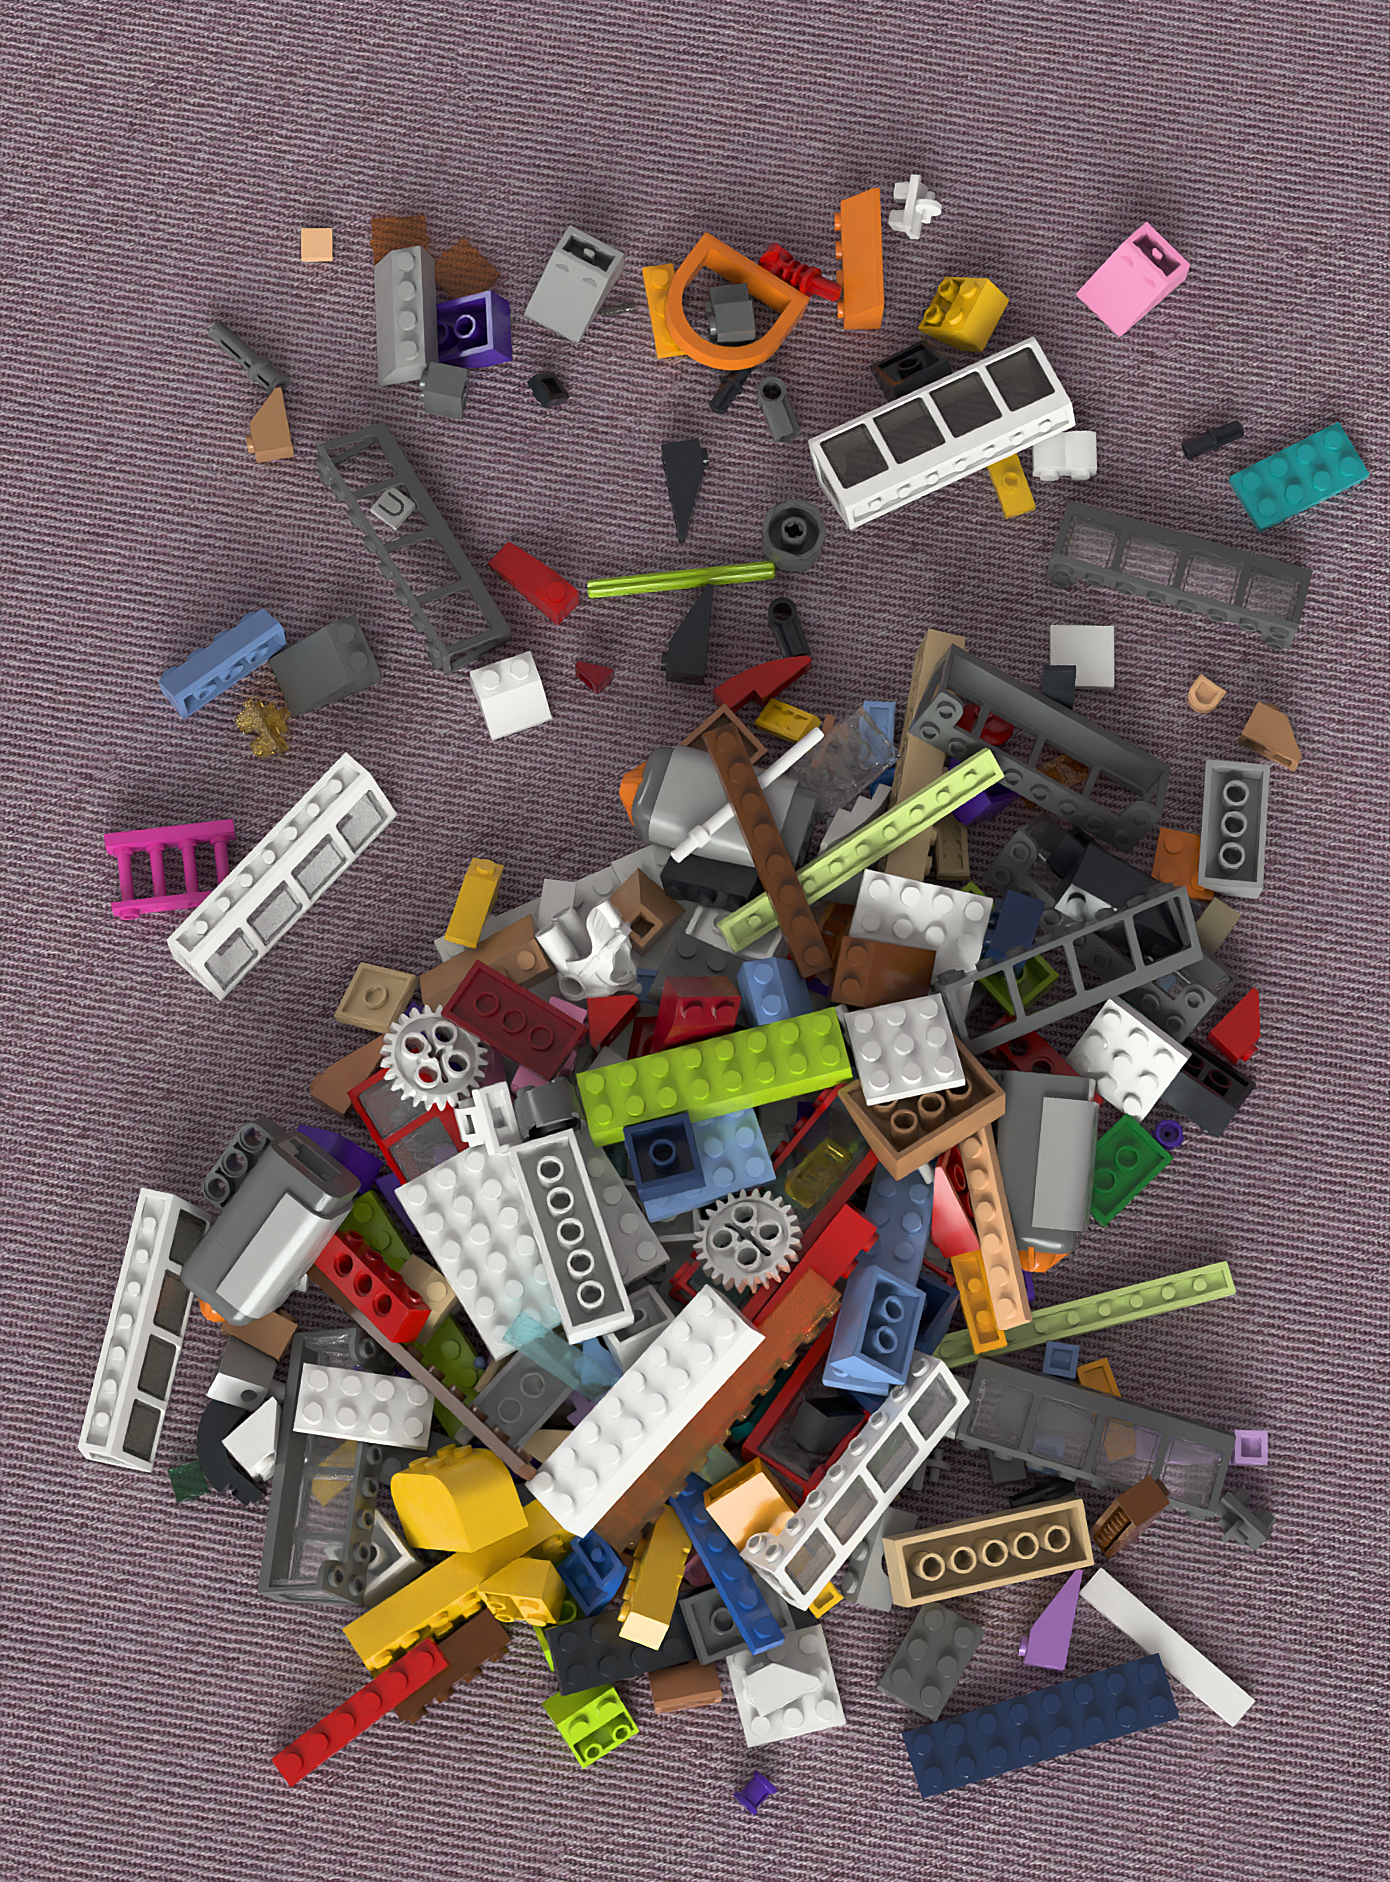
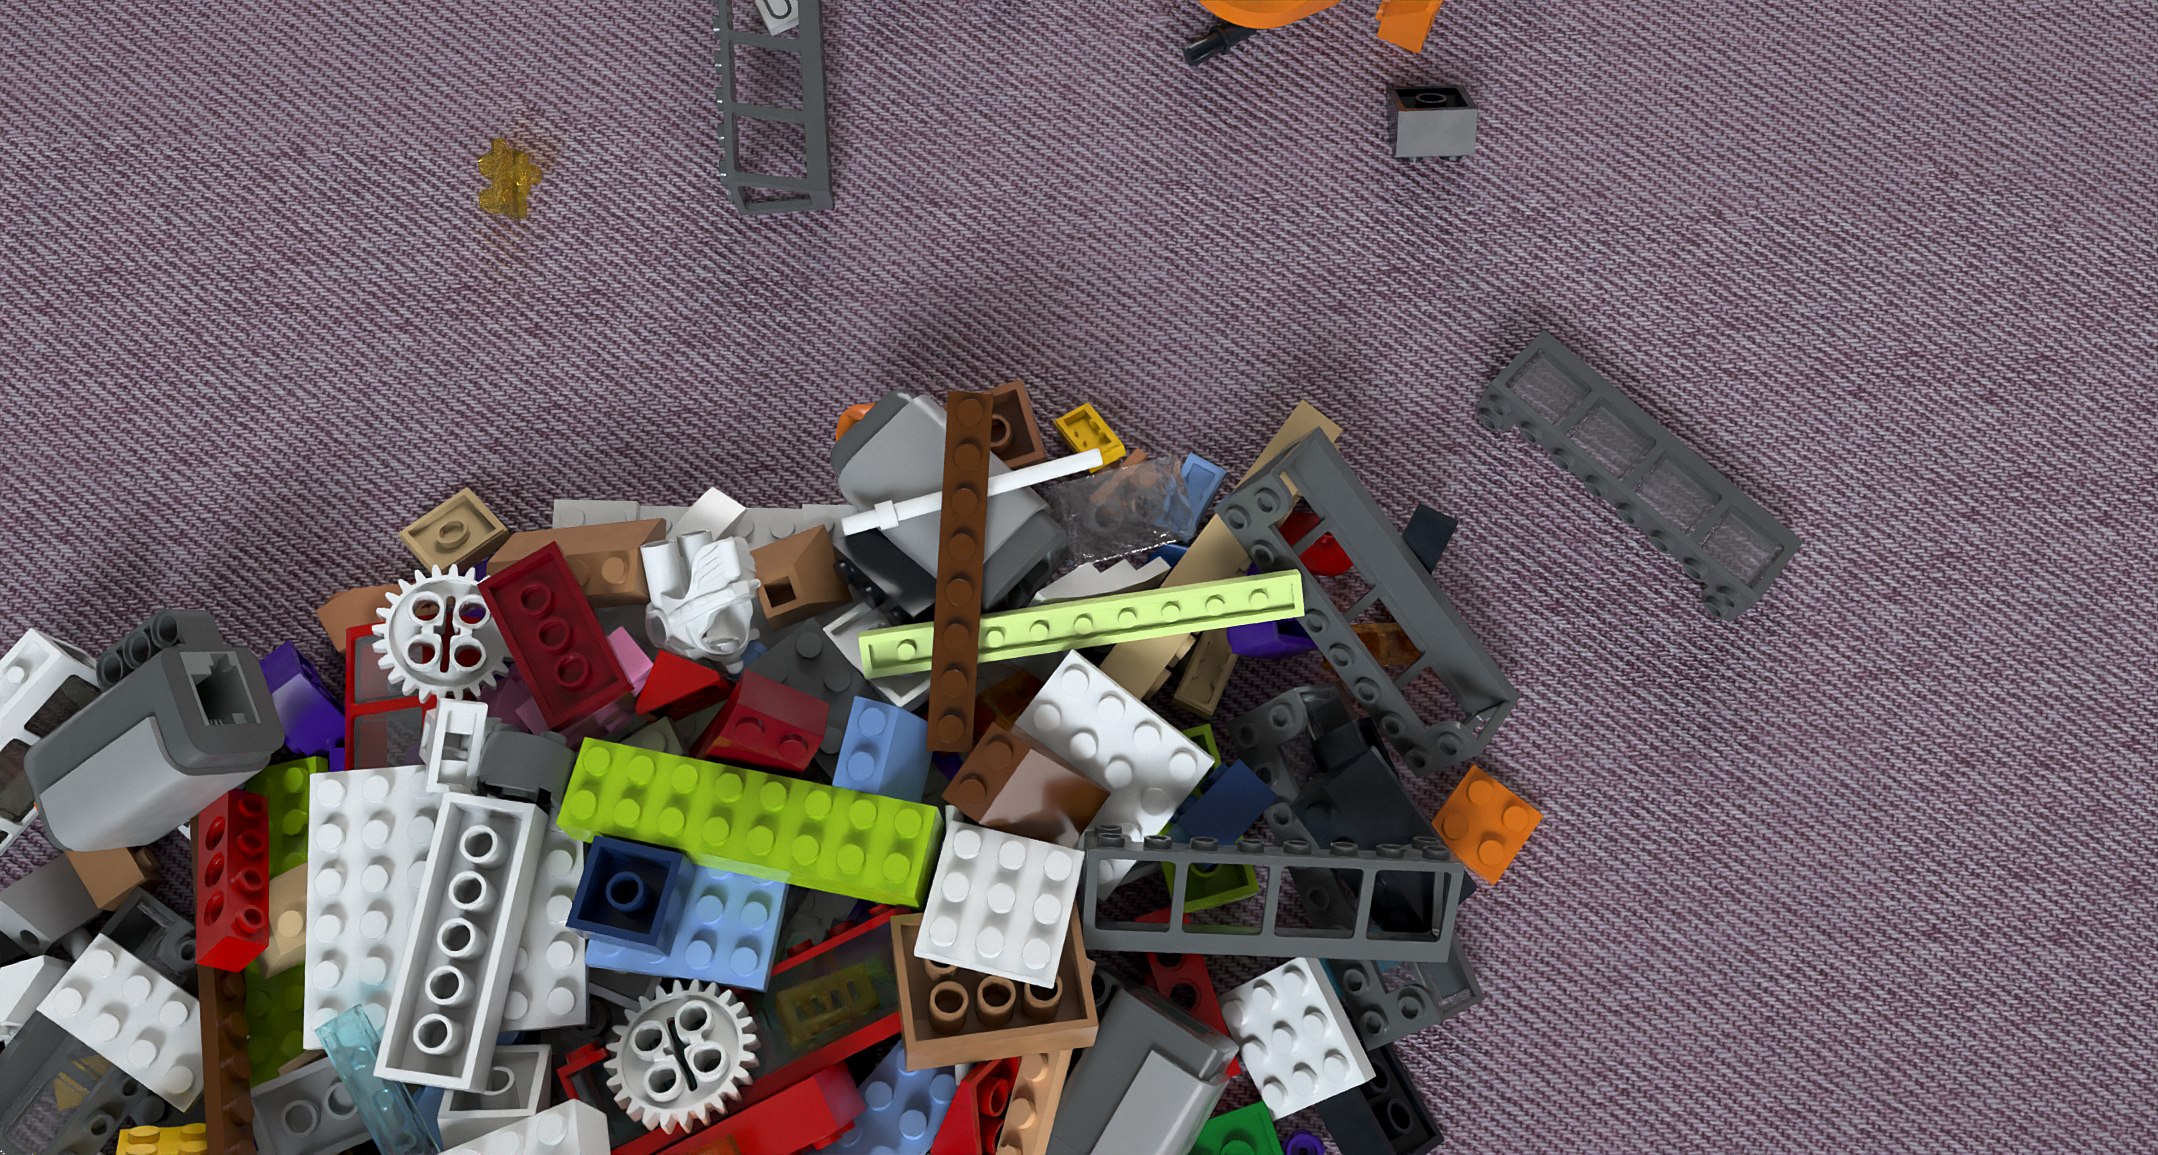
camera: 30 degrees right, 0 degrees up
(154, 843) = (318, 249): dark pink fence -> none
(223, 662) = (498, 91): medium blue slope -> none
(282, 877) = (416, 347): white window -> none
(325, 666) = (613, 144): dark grey slope -> none
(474, 902) = (616, 477): yellow slope -> none
(510, 695) = (793, 265): white slope -> none
(536, 582) = (890, 158): red slope -> none
(594, 676) = (900, 288): dark red slope -> none
(680, 579) = (1054, 225): lime axle -> none
(684, 476) = (1113, 119): black slope -> none
(689, 645) = (1025, 299): black slope -> none
(761, 682) = (1083, 379): red slope -> none
(777, 411) = (1256, 87): dark grey piece -> none
(780, 524) = (1186, 226): dark grey brick -> none
(787, 632) = (1144, 335): black piece -> none
(941, 433) = (1432, 187): window -> none
(964, 312) = (1523, 73): yellow slope -> none
(1011, 486) = (1484, 286): yellow plate -> none
(1065, 455) = (1564, 278): white brick -> none
(1087, 648) = (1485, 517): white tile -> none
(1134, 279) = (1740, 119): bright pink slope -> none
(1204, 695) = (1601, 630): light nougat tile -> none
(1212, 440) = (1748, 339): black axle -> none
(1216, 924) = (1485, 917): dark tan slope -> none
(1234, 828) = (1564, 808): light grey slope -> none
(1238, 1030) = (1454, 1063): red slope -> none
(1271, 736) = (1661, 717): medium nougat slope -> none
(1298, 477) = (1833, 427): teal plate -> none

